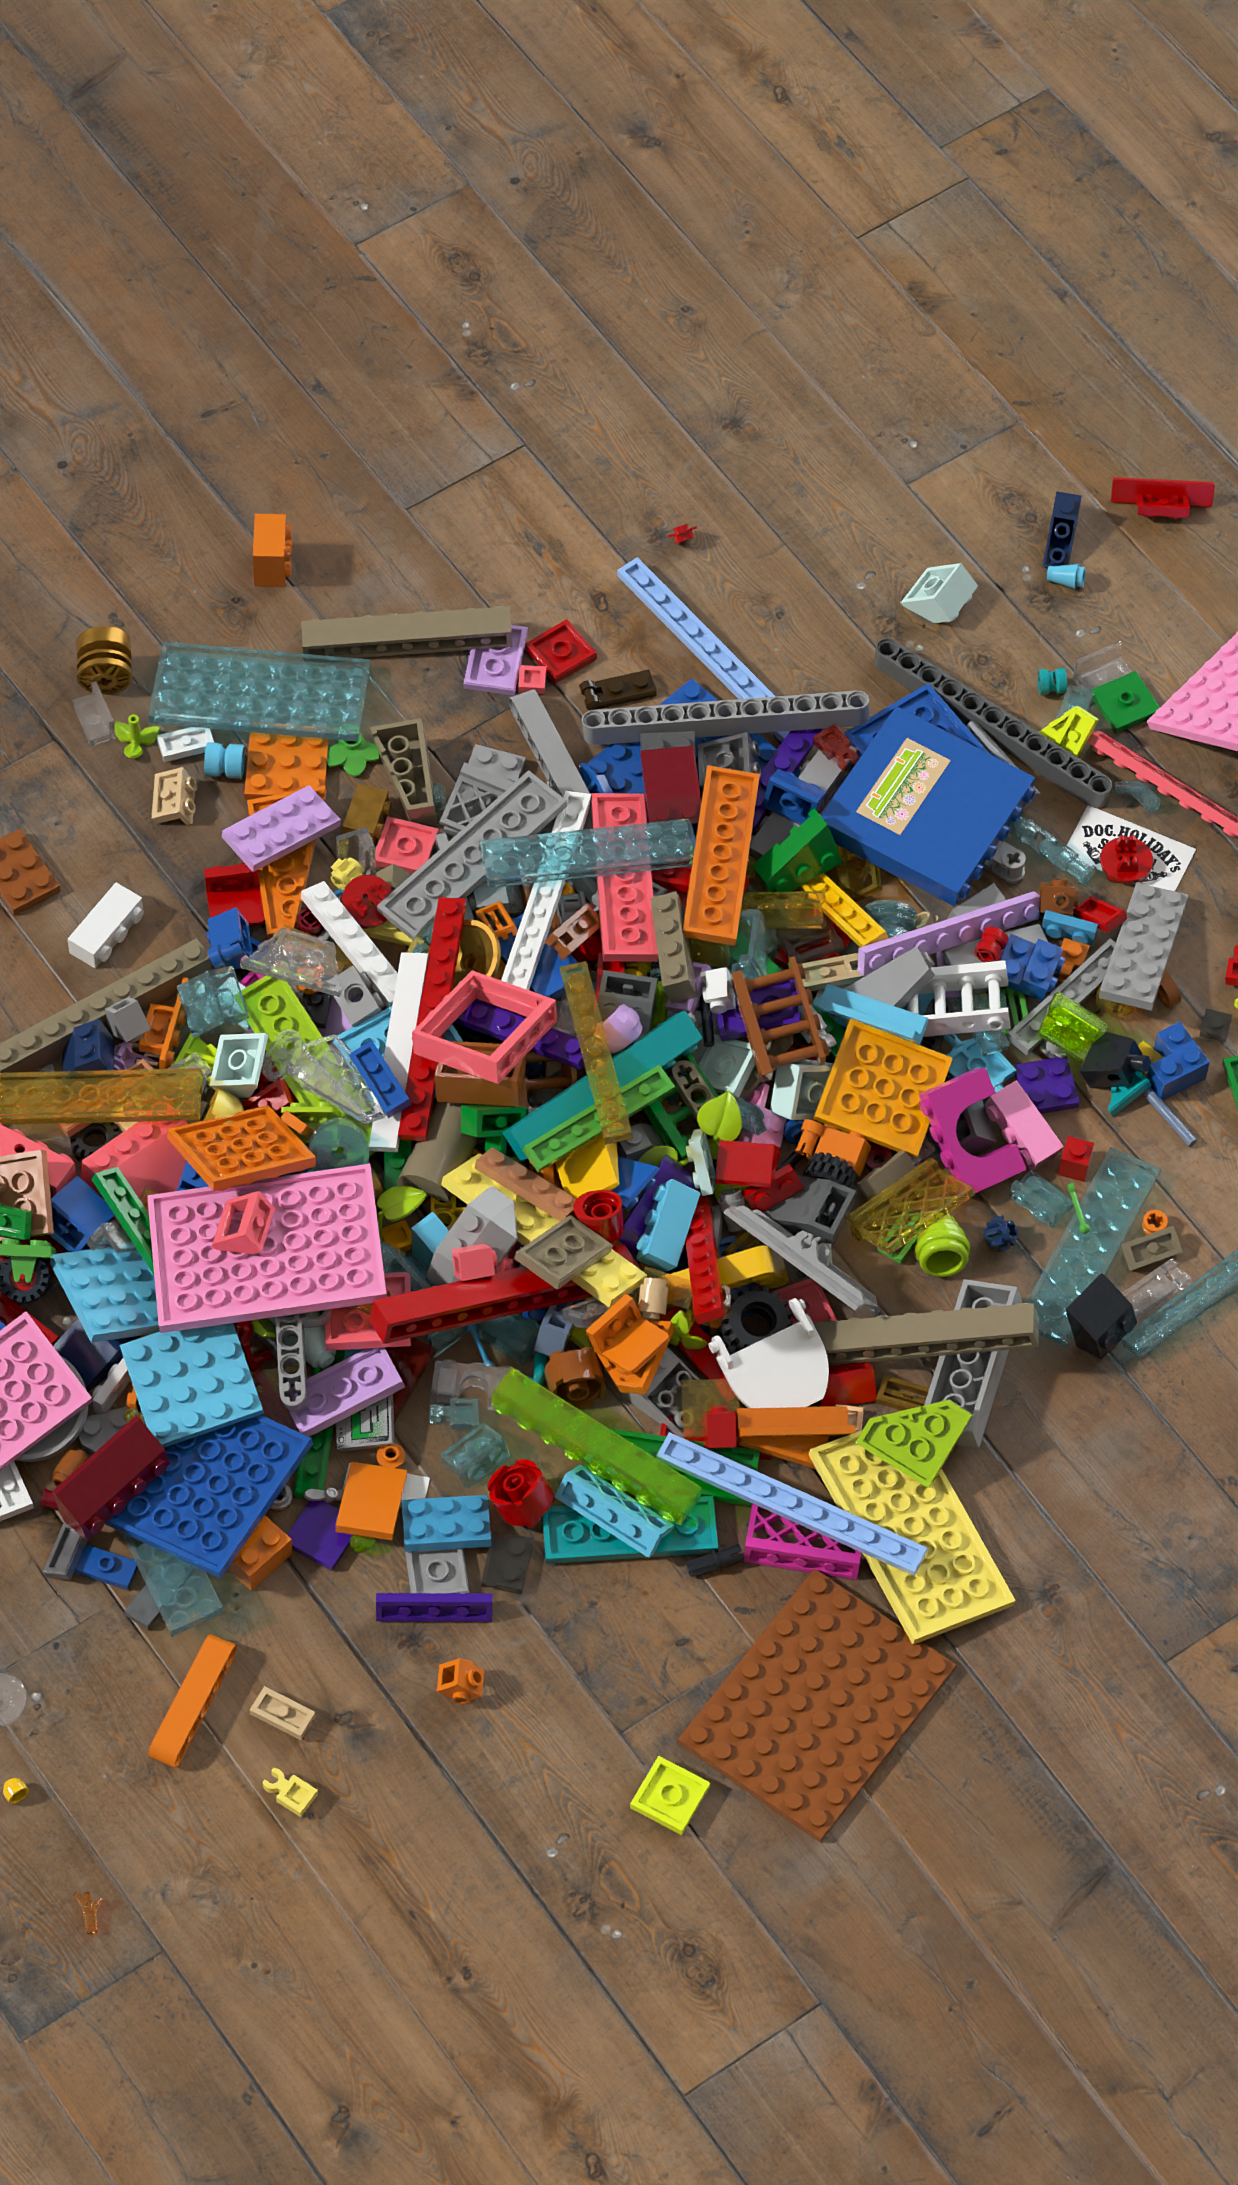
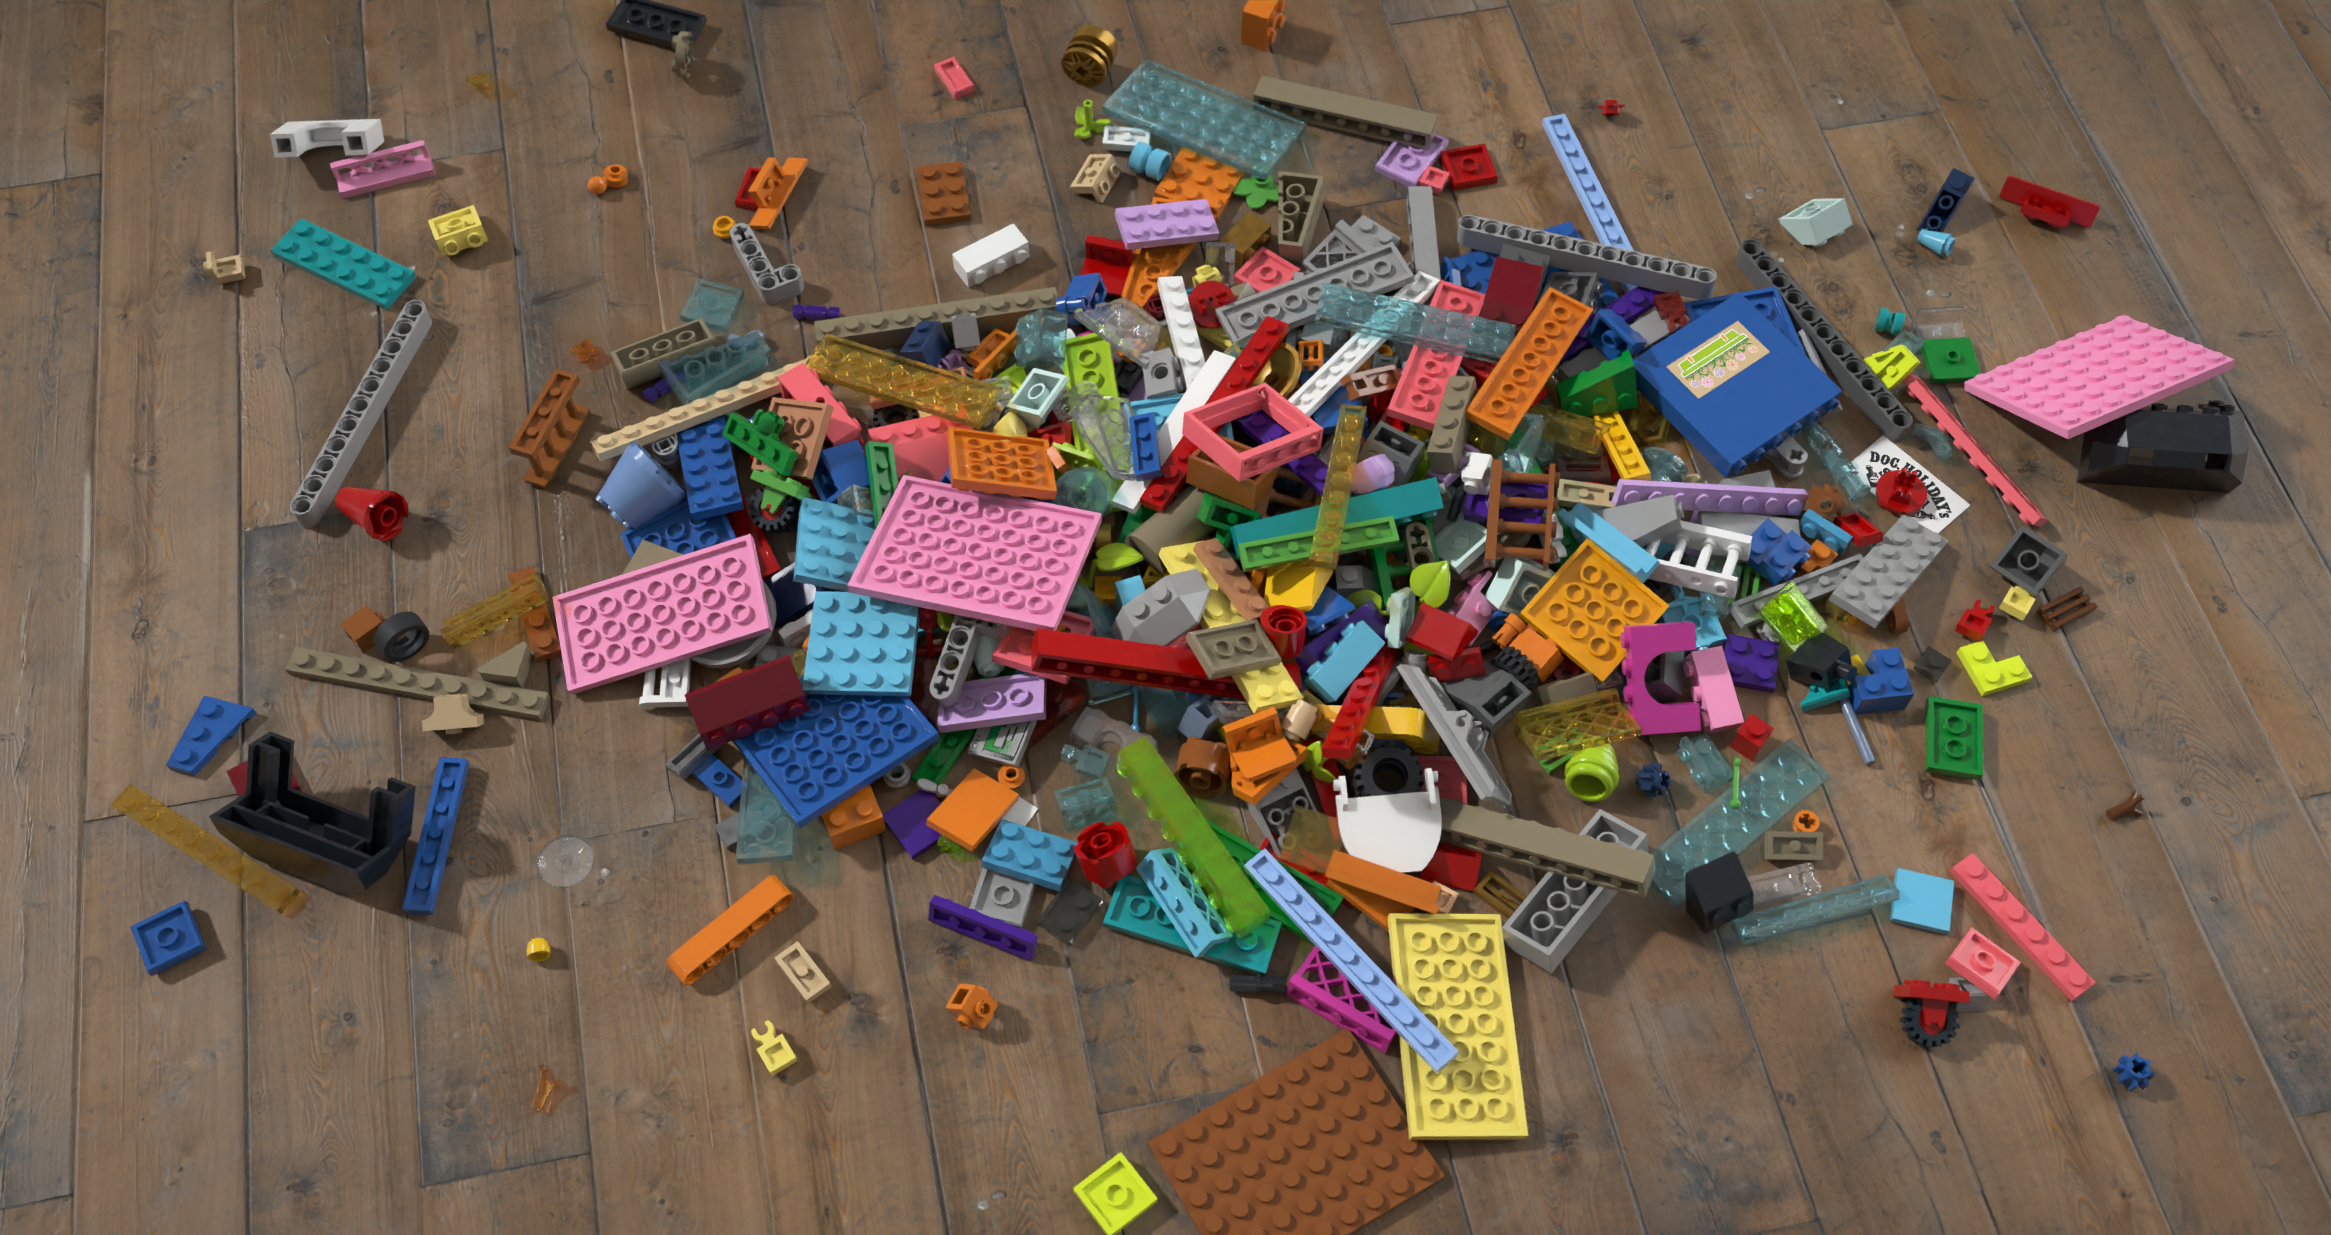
camera: 25 degrees right, 0 degrees up
(95, 717) = (1063, 98): clear panel -> none
(253, 1227) = (970, 529): coral tile -> none
(440, 796) = (1313, 242): clear light blue tile -> none
(474, 1261) = (1149, 628): coral brick -> none
(540, 1362) = (1171, 757): teal arm -> none
(618, 690) = (1506, 211): dark brown plate -> none
(719, 1427) = (1312, 861): red brick -> none
(751, 1116) = (1460, 591): clear light blue plate -> none
(916, 1438) = (1493, 941): lime plate -> none
(991, 945) = (1748, 519): red wheel -> none

